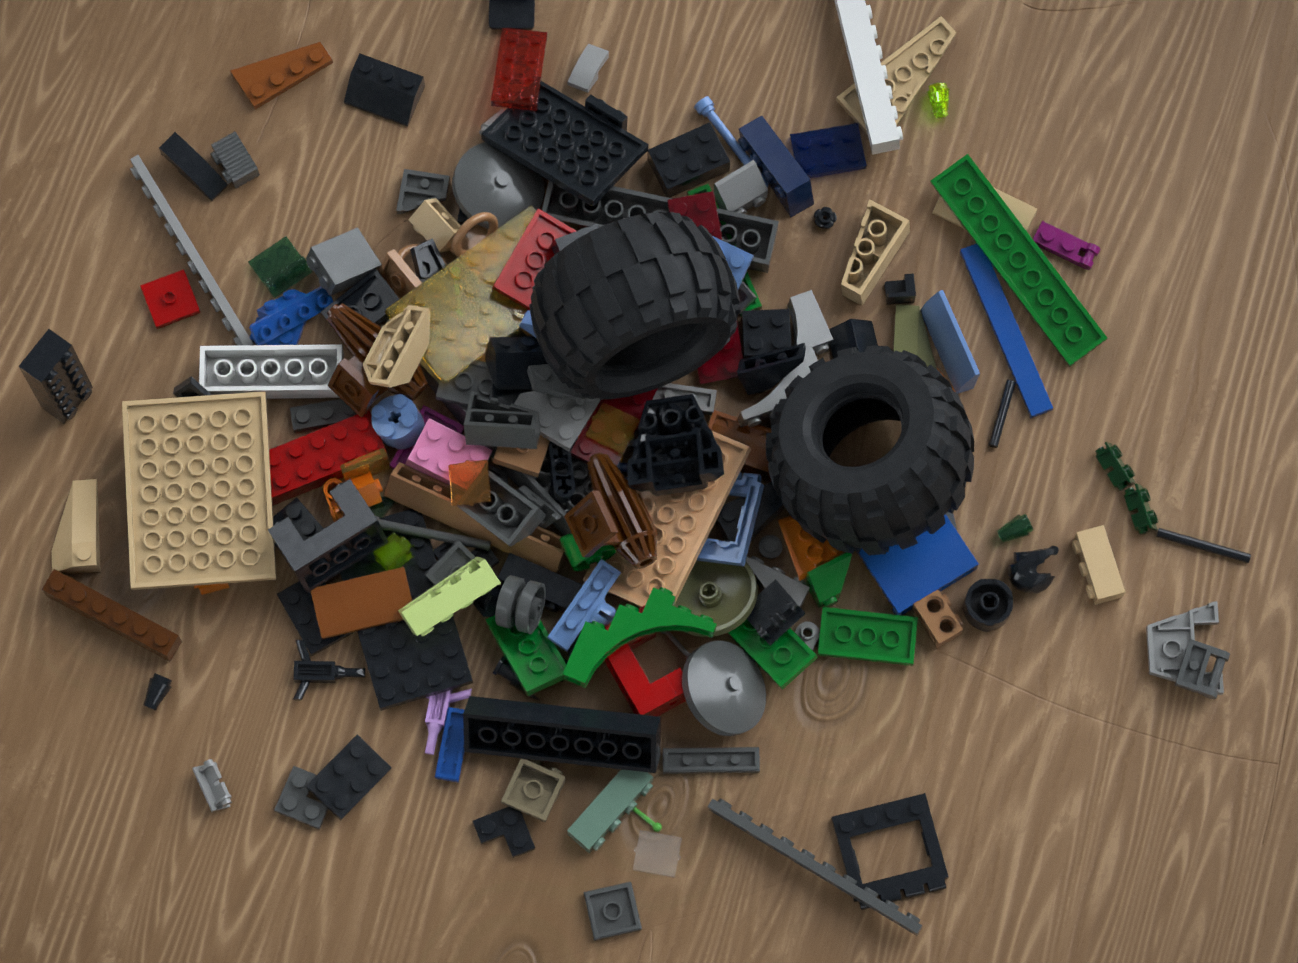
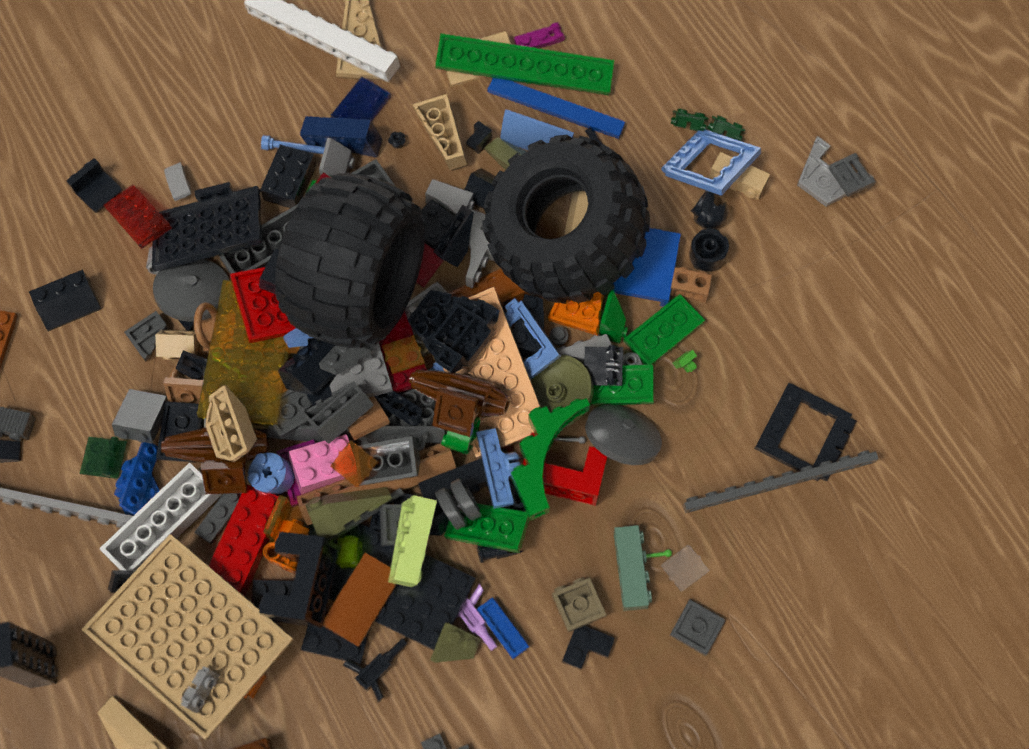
camera: 45 degrees left, 5 degrees down
(153, 547) = (195, 698): none -> light grey hinge
(170, 299) = (51, 542): red plate -> none
(348, 777) = (461, 713): black plate -> none
(399, 717) = (454, 645): none -> olive wing
(415, 507) = (335, 510): none -> olive wedge
(562, 734) = (563, 554): black brick -> none
(711, 760) = (655, 484): dark grey tile -> none
(855, 680) = (685, 361): none -> bright green tile
(939, 99) = (392, 26): clear neon green cone -> none
(1015, 528) = (676, 198): clear green cone -> none
(1078, 553) = (728, 175): none -> medium blue hinge
(1203, 545) = (776, 117): black bar -> none

